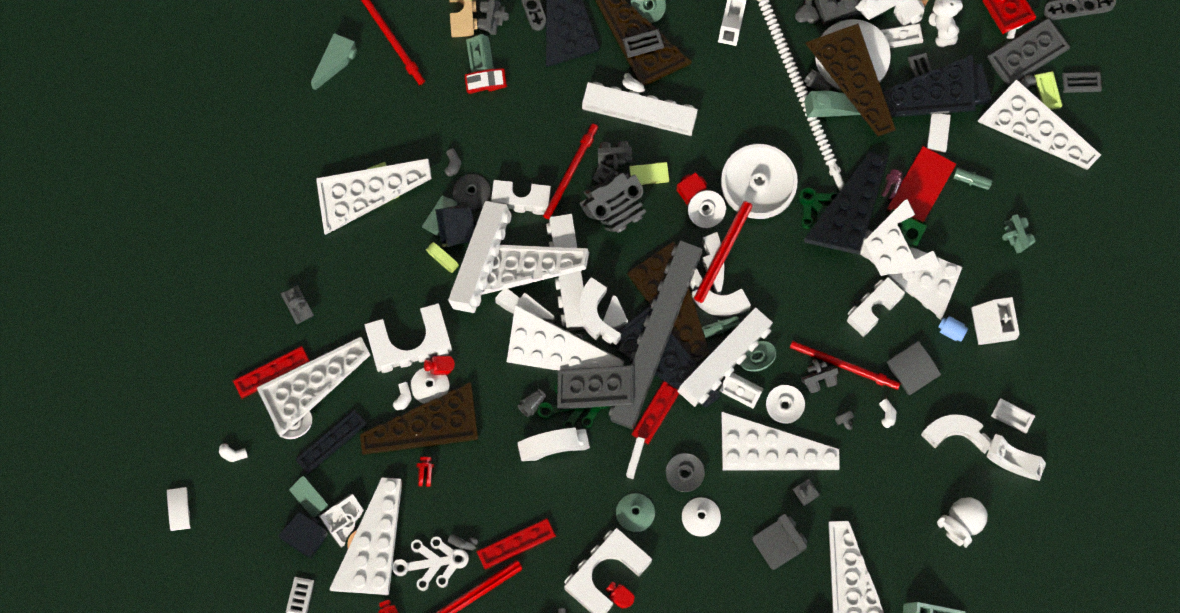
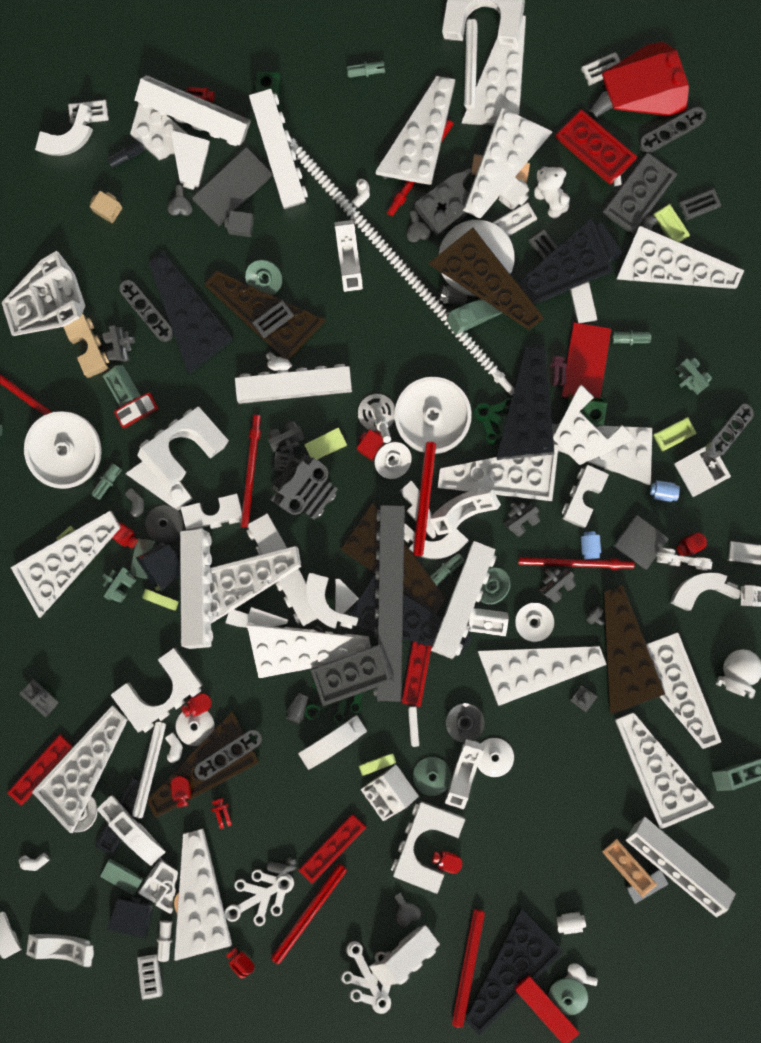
camera: 20 degrees left, 10 degrees up
(227, 538) = (60, 947): none -> white arch
(326, 570) = (164, 940): none -> white axle
(335, 456) = (130, 831): none -> white slope
(372, 407) = (149, 769): none -> white axle
(395, 435) = (180, 791): none -> red arm
(405, 90) = (62, 449): none -> white dish
(407, 227) = (123, 577): none -> sand green hips
(432, 189) = (125, 536): none -> red arm
(433, 133) = (106, 481): none -> sand green axle
(451, 415) = (227, 752): none -> dark grey beam
(484, 150) = (176, 496): none -> white wedge
(533, 112) = (194, 426): none -> white arch
(588, 480) = (377, 764): none -> yellowish green beam
(589, 510) = (389, 793): none -> white slope
(668, 516) = (464, 773): none -> white arch
(708, 163) = (382, 421): none -> white dish
(756, 274) = (458, 509): none -> white arch
(780, 542) = (576, 756): dark grey bracket -> none
(813, 264) = (508, 477): none -> white wing
(816, 303) = (519, 515): none -> dark grey hips
(861, 475) = (629, 663): none -> dark brown wing
(864, 353) = (590, 545): none -> light blue brick
(890, 413) = (635, 594): white arm -> none
(897, 500) = (682, 689): none -> white wing
(932, 379) = (668, 555): none -> white plant
(961, 387) = (692, 544): none -> red arm
(982, 281) = (674, 434): none -> yellowish green tile
(1035, 296) = (728, 429): none -> dark grey beam

